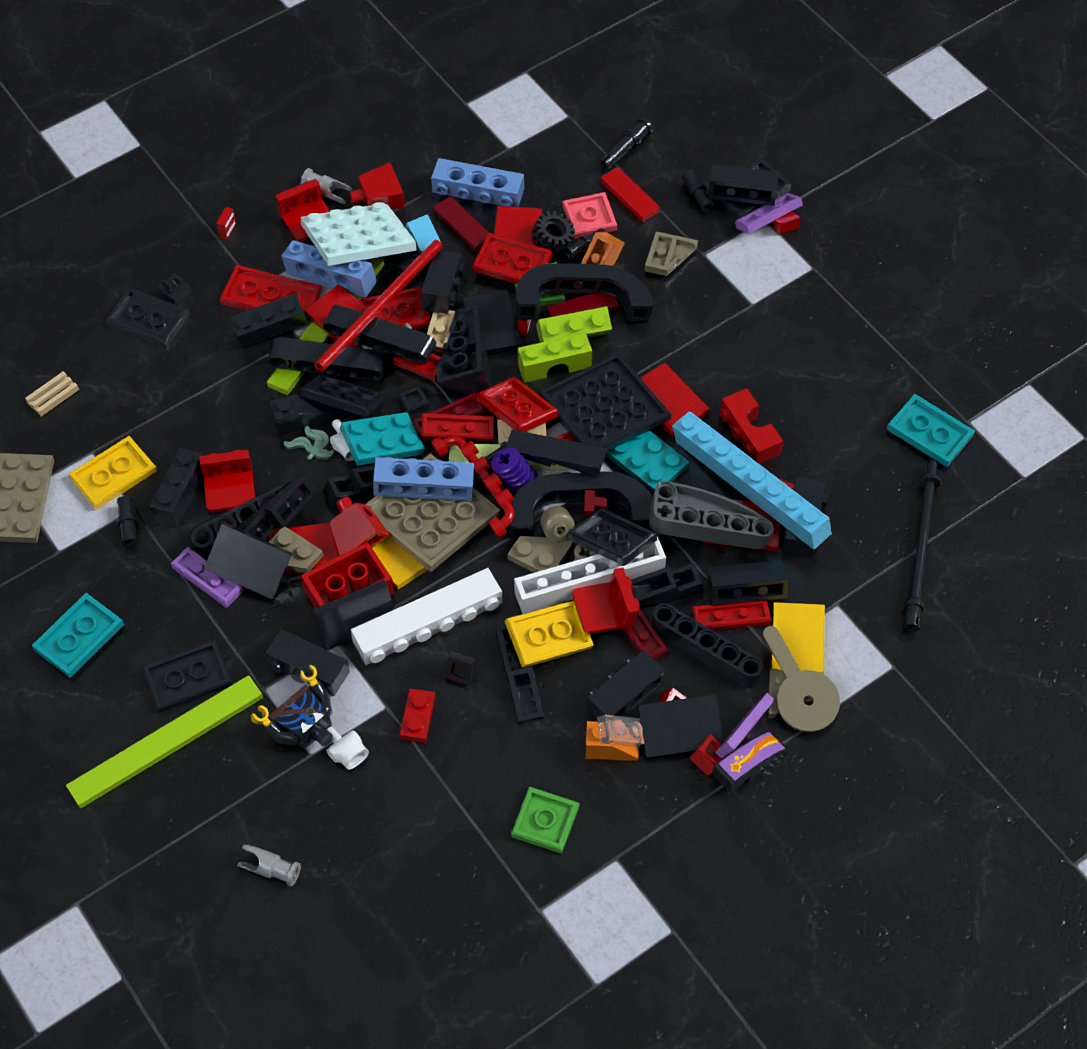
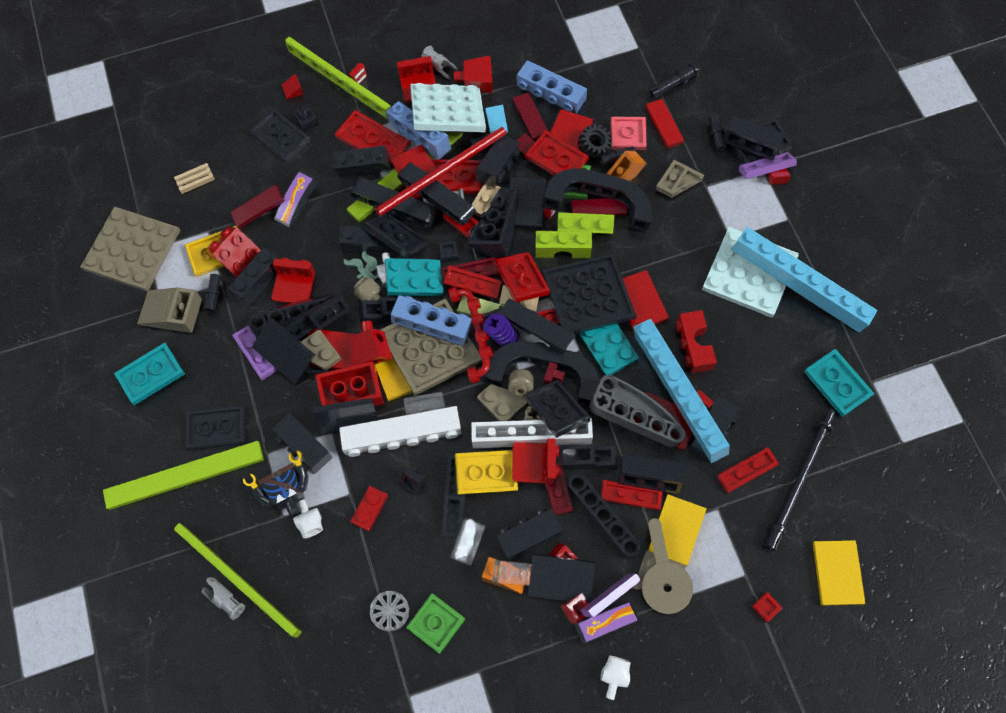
camera: 20 degrees right, 10 degrees up
(78, 552) = (170, 309): none -> dark tan slope
(139, 463) = (233, 250): none -> red bracket
(144, 257) = (292, 87): none -> red slope
(150, 405) = (257, 206): none -> dark red tile
(197, 385) = (295, 198): none -> slope
(202, 232) = (337, 77): none -> lime tile
(281, 838) = (237, 580): none -> lime tile
(328, 466) = (367, 290): none -> dark tan head
(444, 577) = (424, 403): none -> clear plate
(469, 255) = (525, 144): none -> dark red tile
(483, 821) = (389, 611): none -> light grey wheel
(553, 717) = (467, 542): none -> clear plate
(780, 811) = (615, 674): none -> white piece
(788, 336) = (742, 281): none -> light aqua plate
(853, 326) = (804, 280): none -> medium azure brick
(857, 552) = (747, 470): none -> red tile
(929, 693) = (766, 607): none -> red tile
(998, 634) = (838, 573): none -> yellow tile

